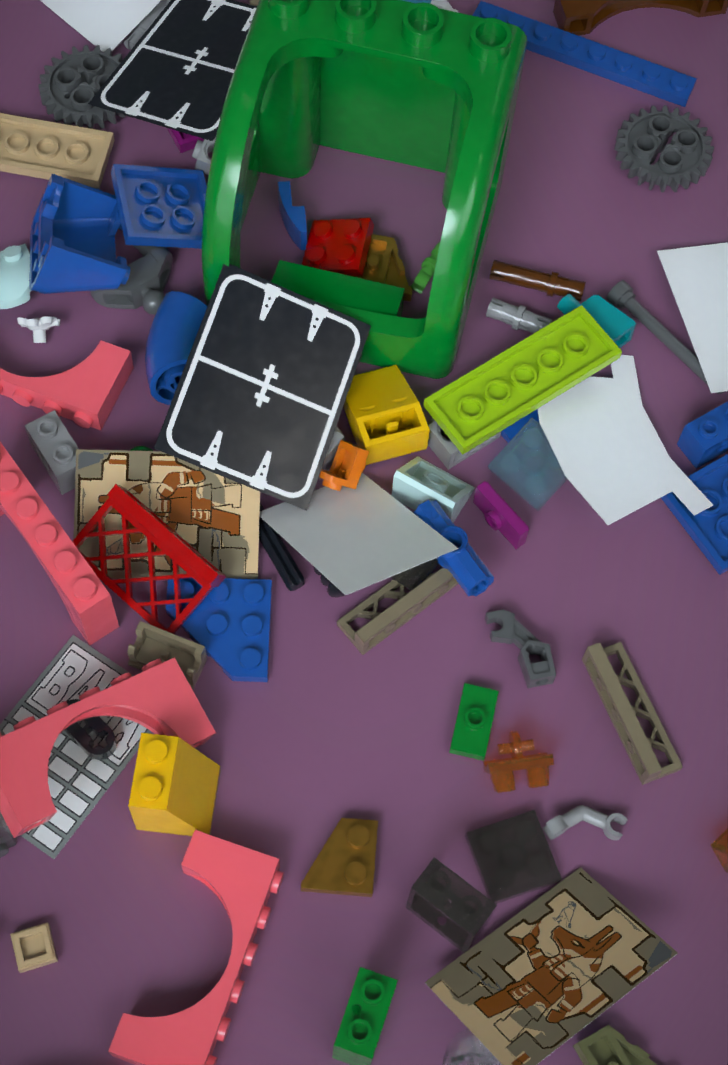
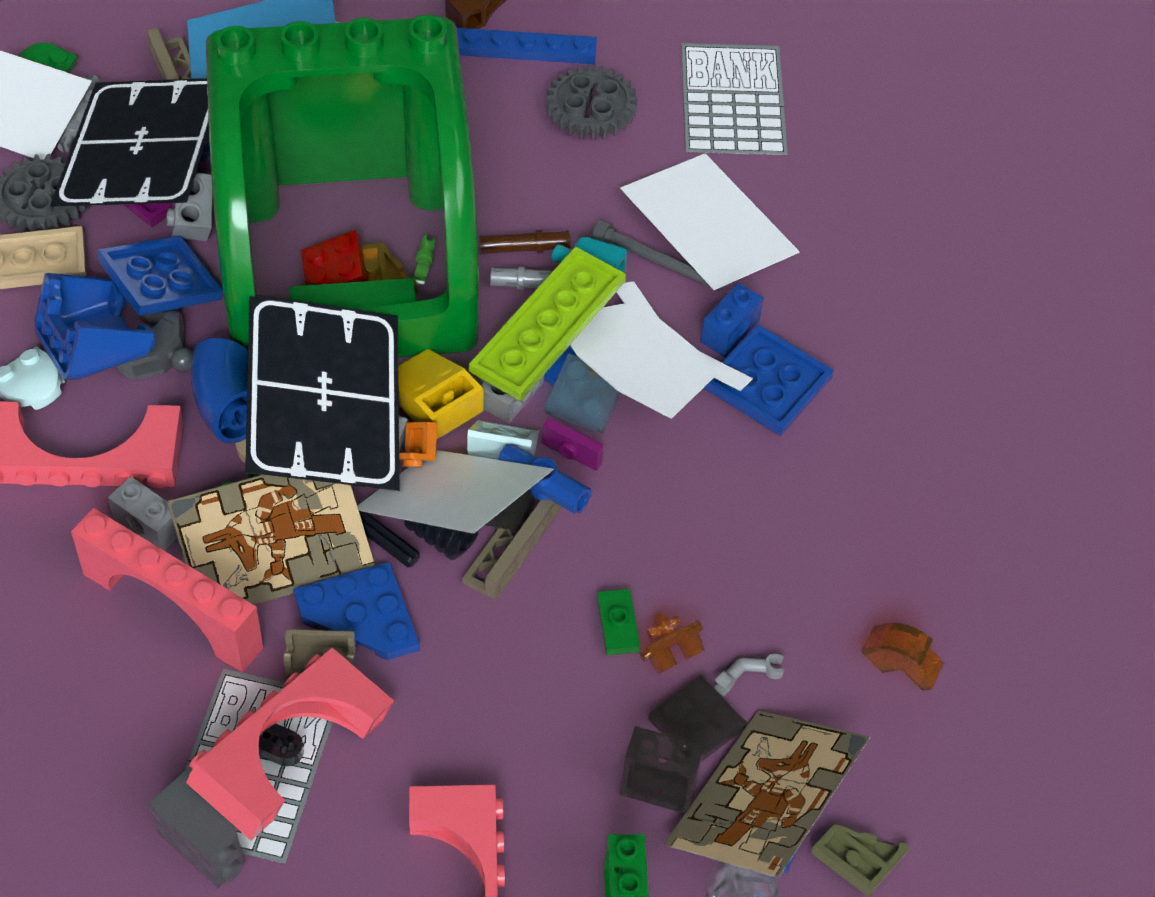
camera: 20 degrees left, 10 degrees down
(39, 326) = (80, 413): white plant -> none
(165, 539) = (282, 552): red fence -> none
(172, 787) = (373, 758): yellow slope -> none
(292, 216) = (281, 252): blue slope -> none
(345, 861) = (552, 773): pearl gold wing -> none
(513, 632) = (620, 537): dark grey piece -> none
(624, 715) = (745, 573): dark tan fence -> none

